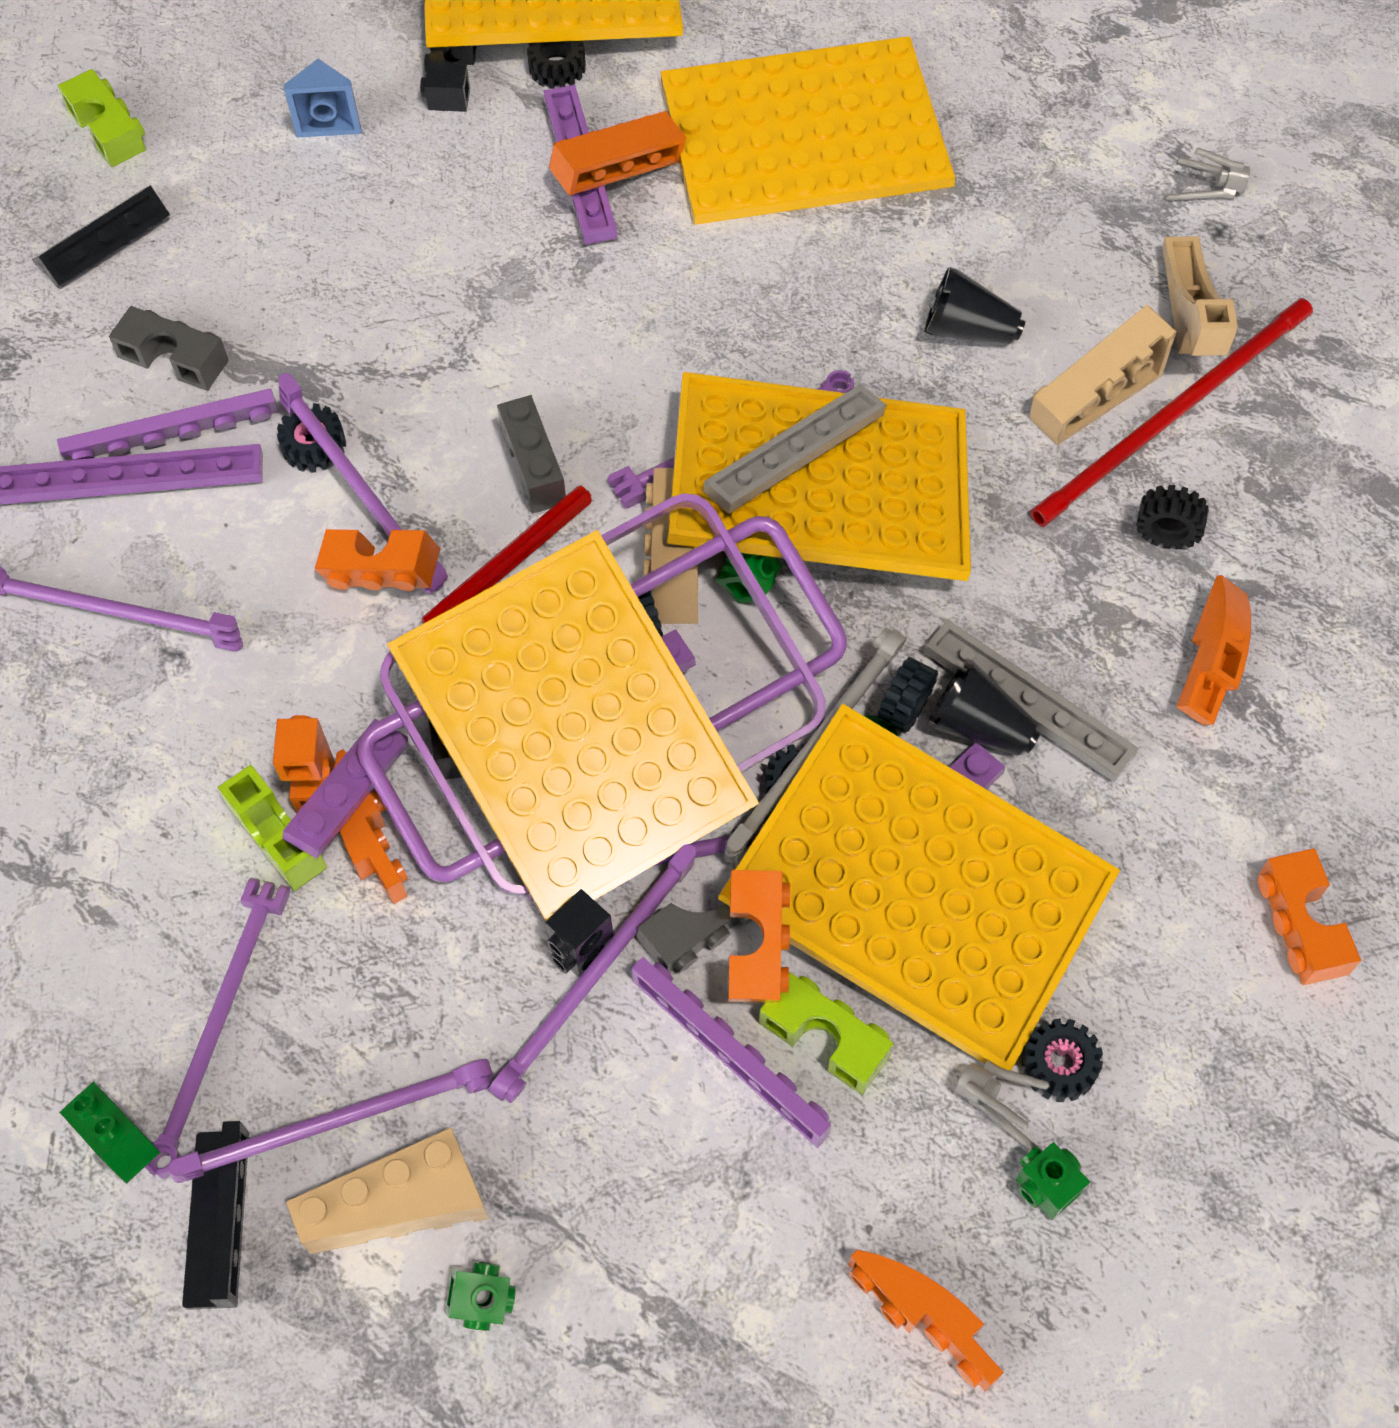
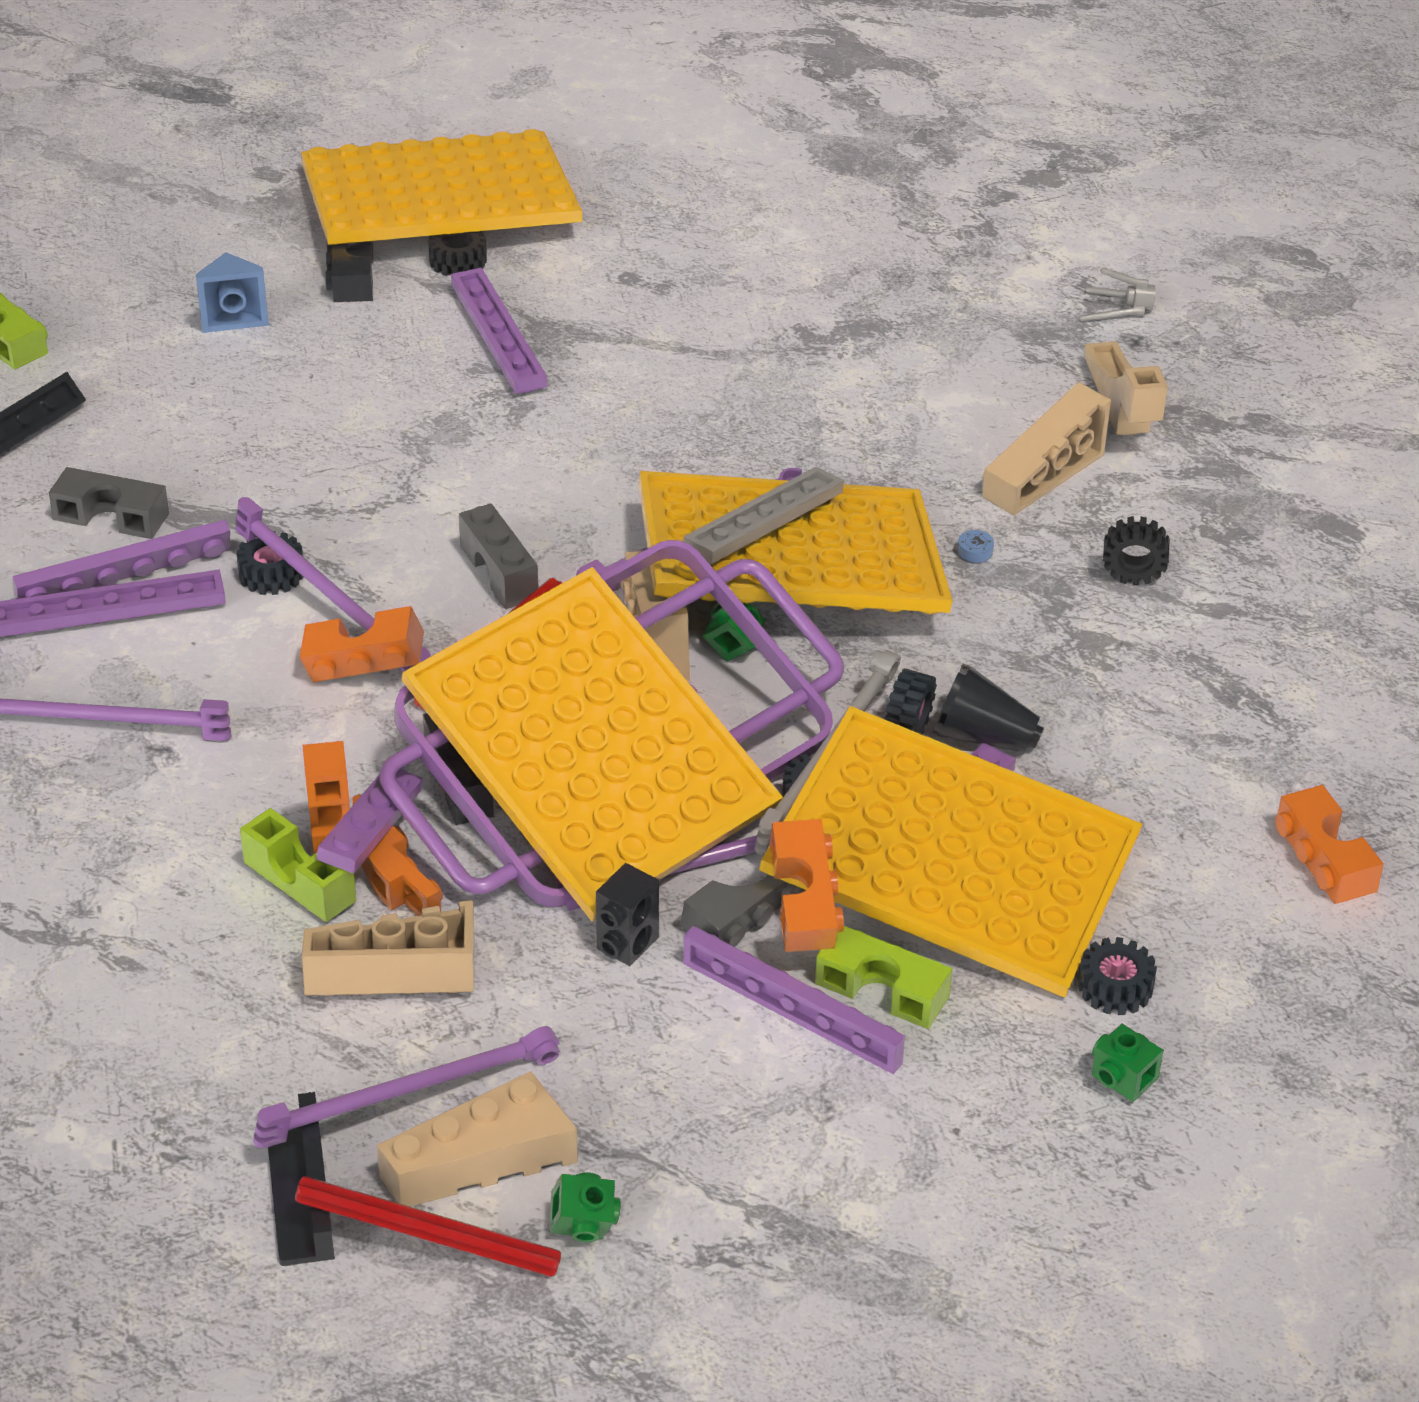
camera: 10 degrees left, 20 degrees down
(109, 1132) = (182, 1114): green brick -> none
(261, 906) = (238, 1132): medium lavender hinge -> none
(322, 1301) = (428, 1226): none -> red axle
(349, 951) = (392, 954): none -> tan wedge
(508, 1082) = (577, 1044): medium lavender hinge -> none
(616, 152) = (536, 313): orange brick -> none
(806, 130) = (716, 290): yellow plate -> none
(915, 1298) = (1018, 1169): orange slope -> none
(972, 312) = (911, 412): black cone -> none
(981, 1090) = (1046, 999): light grey plant -> none
(1011, 484) = (975, 546): none -> medium blue tile
(1055, 715) = (1056, 715): light grey plate -> none
(1060, 500) = (1026, 553): red piece -> none
(1222, 652) = (1204, 652): orange slope -> none

